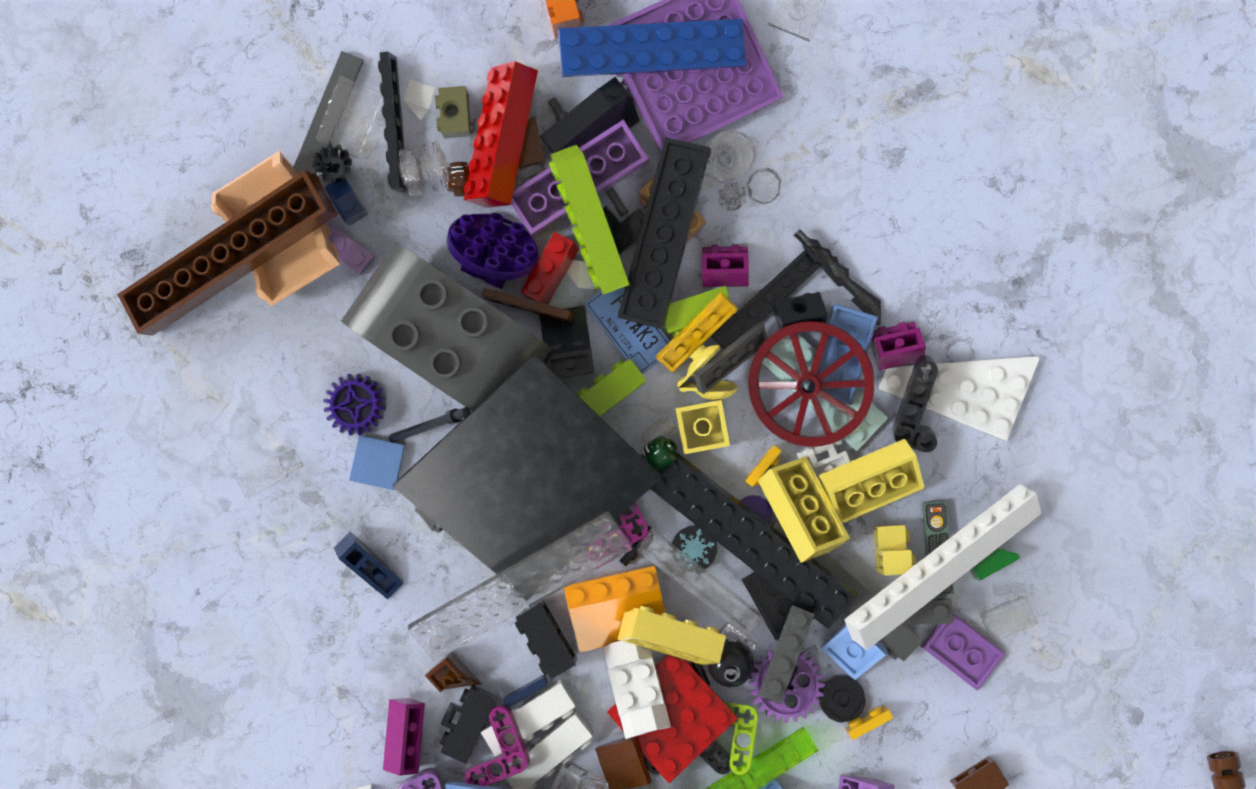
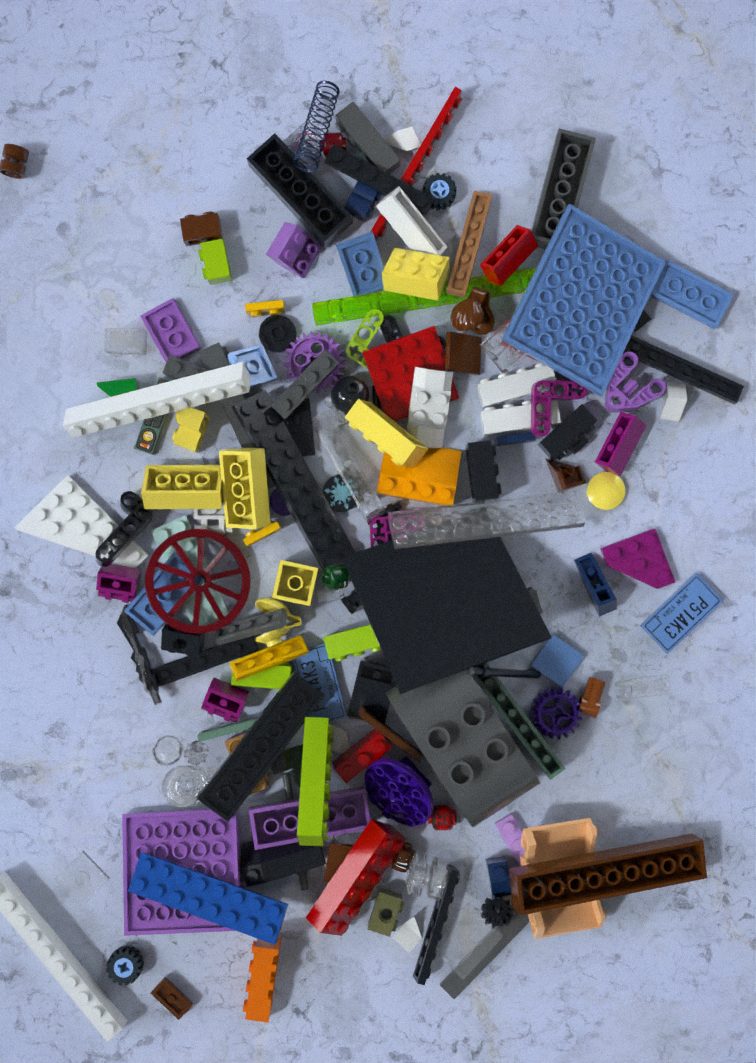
camera: 155 degrees left, 0 degrees up
(259, 573) = (681, 613): none -> medium blue tile
(322, 437) = (591, 697): none -> dark orange piece
(329, 614) = (640, 559): none -> magenta plate
(388, 375) = (520, 724): none -> sand green brick
(398, 675) = (606, 490): none -> light yellow dish
(432, 239) = (443, 817): none -> red head
(631, 432) = (351, 602): none -> black wheel
(710, 234) = (227, 729): none -> sand green tile
(947, 752) = (215, 261): none -> lime brick

